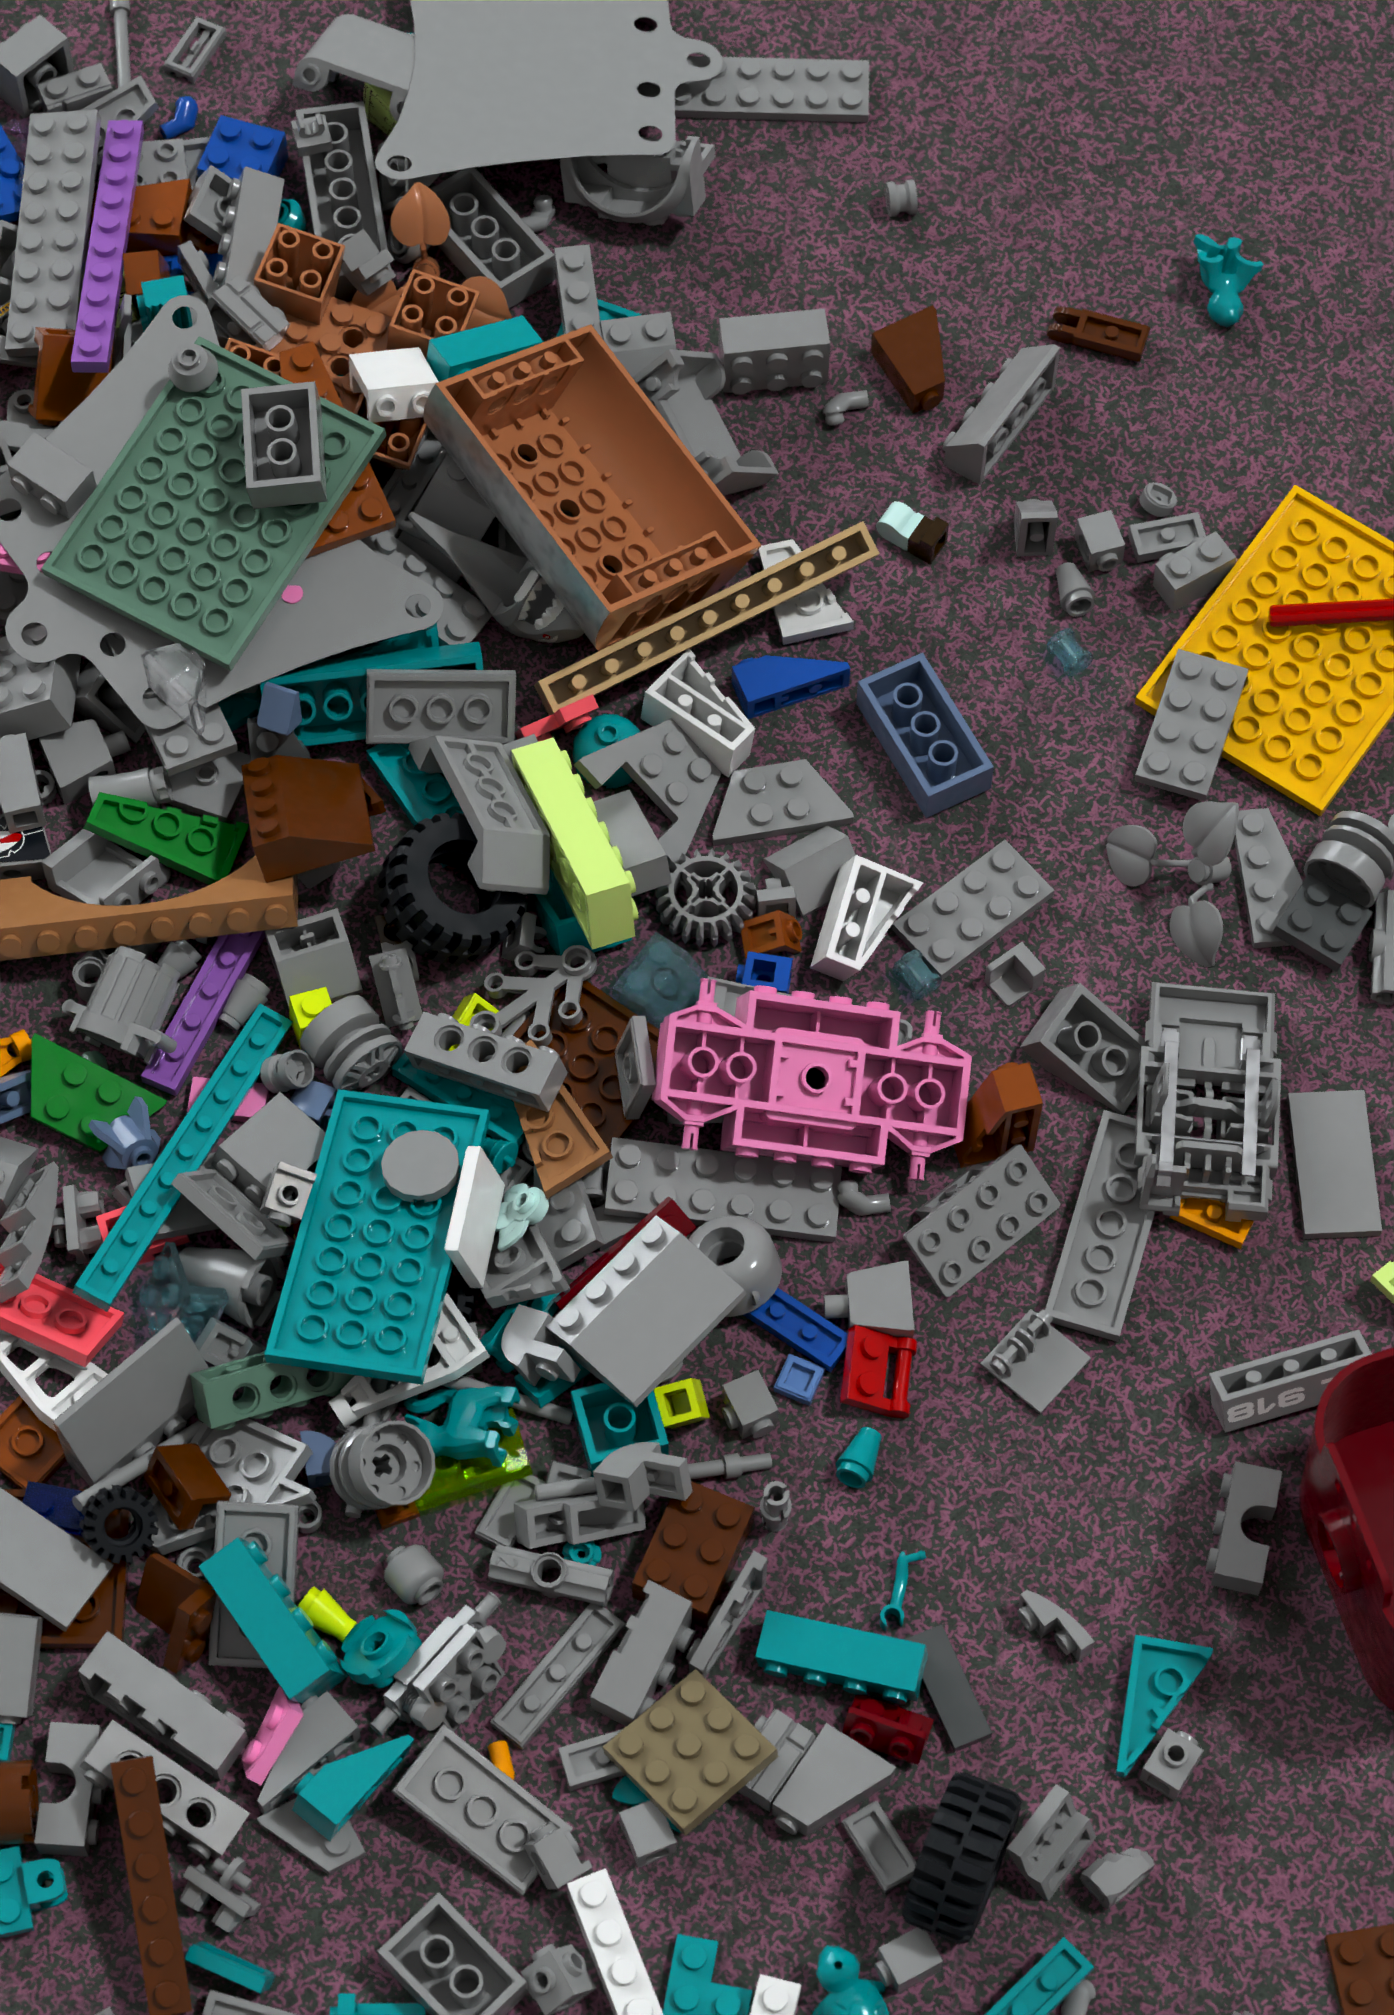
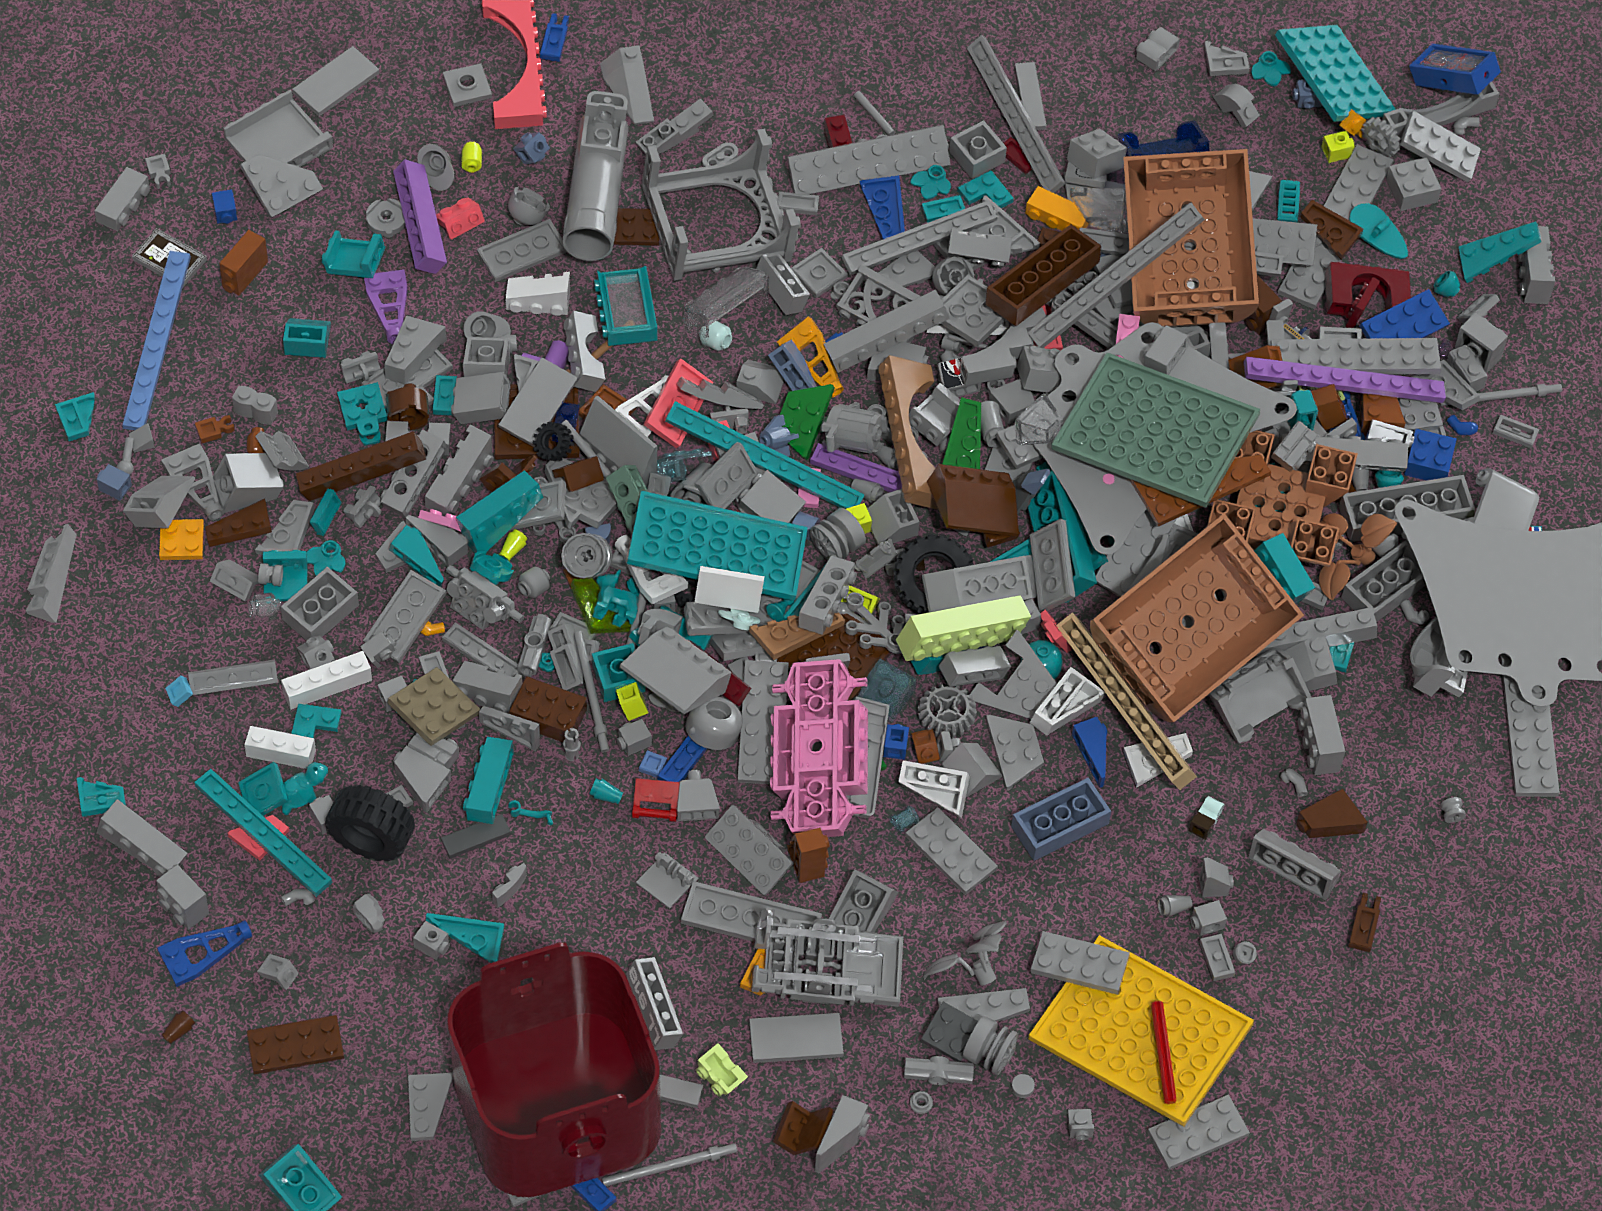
camera: 85 degrees right, 5 degrees down
(192, 368) = (1235, 405): light grey cone -> none
(275, 1205) = (745, 502): light grey brick -> none
(283, 445) = (1183, 448): light grey brick -> none
(287, 1071) = (819, 510): light grey wheel -> none
(311, 135) = (1443, 481): light grey tile -> none
(339, 1971) = (321, 559): none -> teal plate
(365, 264) = (1348, 509): light grey brick -> none
(392, 382) = (1257, 519): white panel -> none
(420, 1166) = (756, 559): light grey tile -> none
(636, 1472) = (584, 671): light grey brick -> none
(858, 1202) = (759, 796): light grey arm -> none
(887, 1728) = (449, 807): dark red bracket -> none
(1014, 975) = (908, 870): light grey panel -> none
(1051, 1842) = (385, 877): light grey slope -> none
(1069, 652) = (1129, 901): clear light blue bush -> none
(1193, 570) = (1190, 966): light grey brick -> none
(1225, 276) = (1416, 989): teal animal -> none

